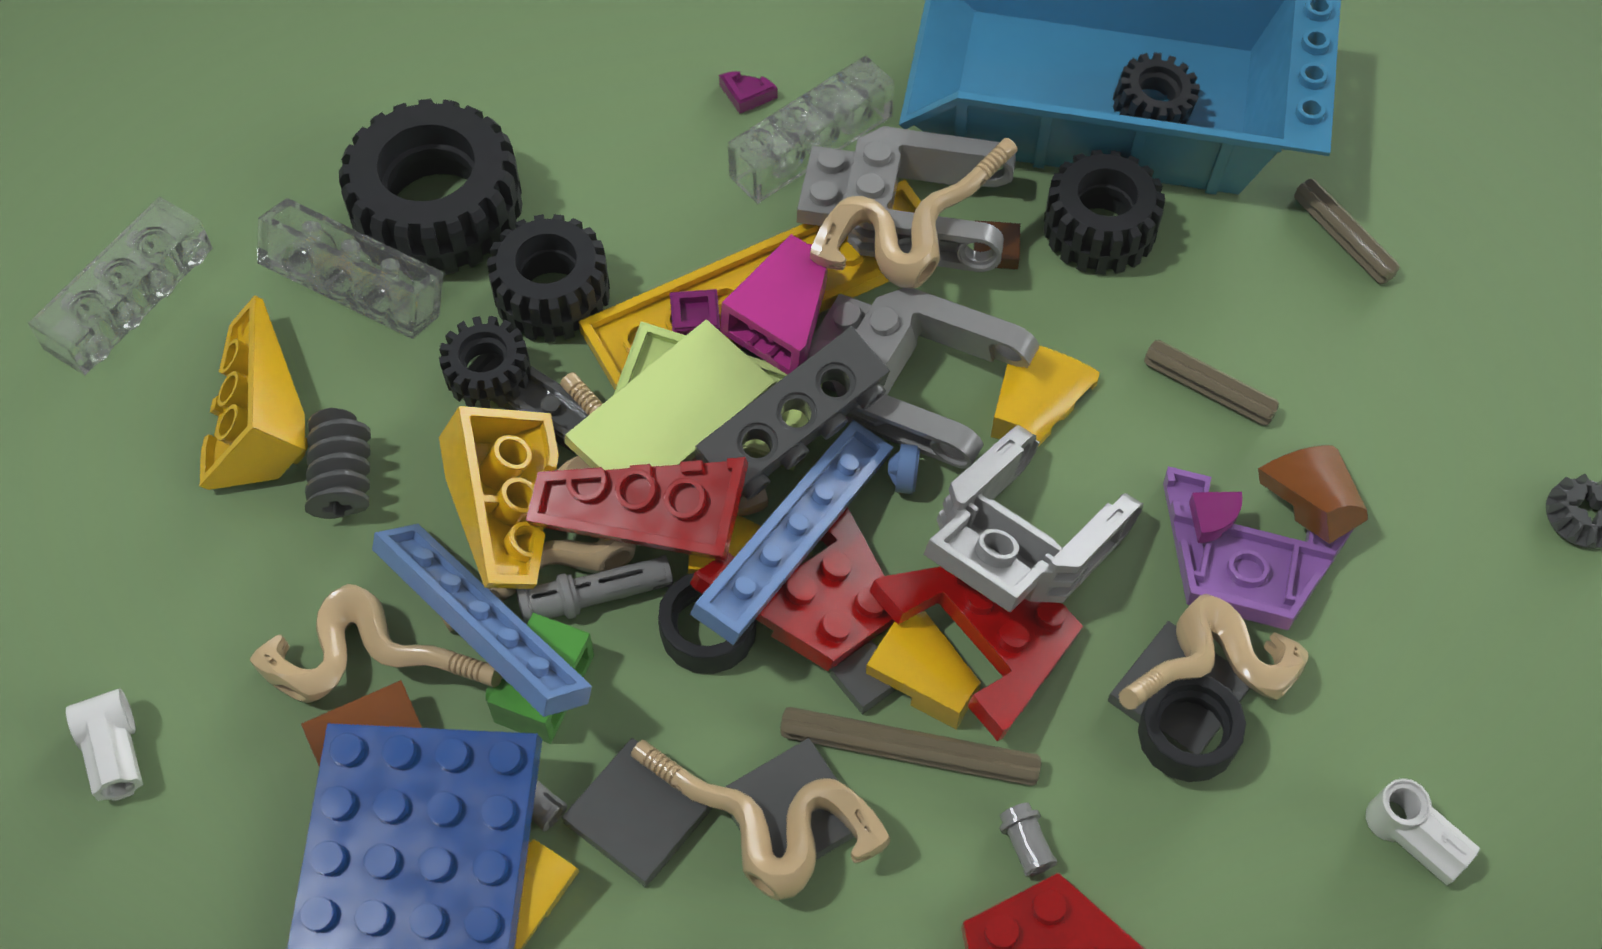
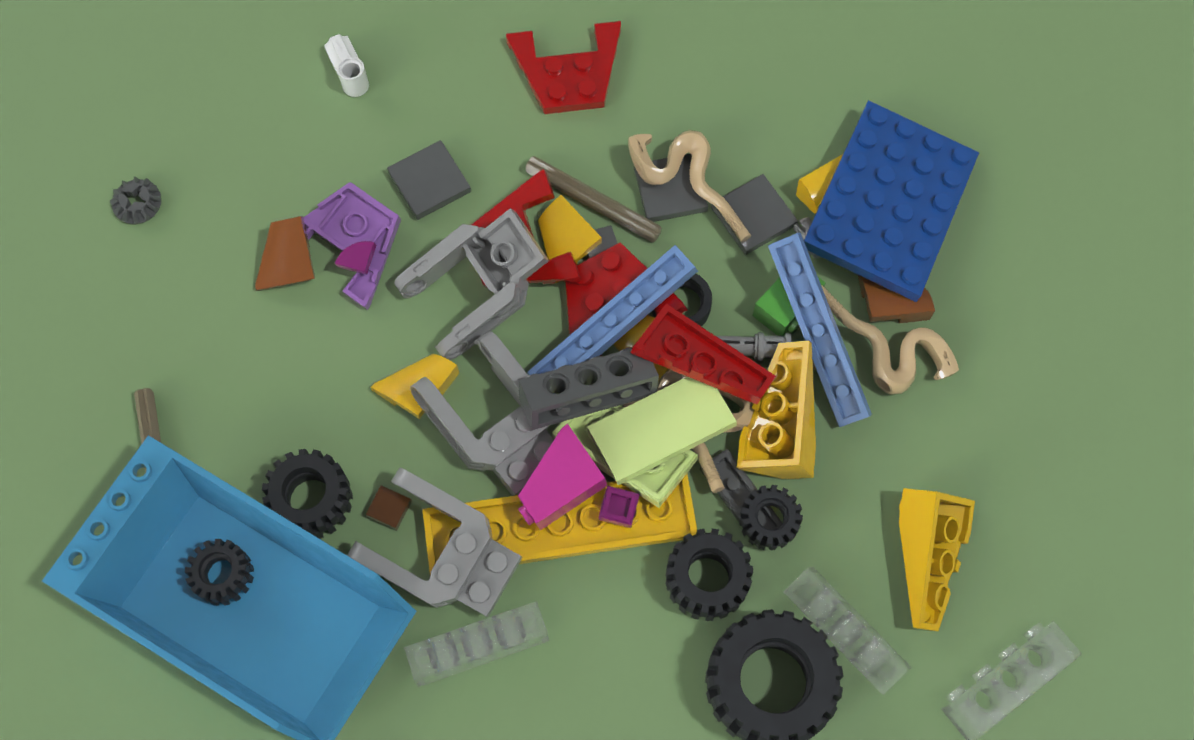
camera: 160 degrees left, 10 degrees up
(103, 734) = (1049, 351): white piece -> none
(337, 464) = (881, 475): dark grey piece -> none
(747, 91) = (507, 714): magenta tile -> none
(902, 268) = (462, 460): tan animal -> none
(904, 468) = (526, 354): medium blue tile -> none
(1027, 839) = (552, 137): light grey pin -> none
(1185, 765) = (439, 123): black tyre -> none
(1211, 382) = (305, 356): dark tan axle -> none
(1215, 619) = (407, 196): tan animal -> none

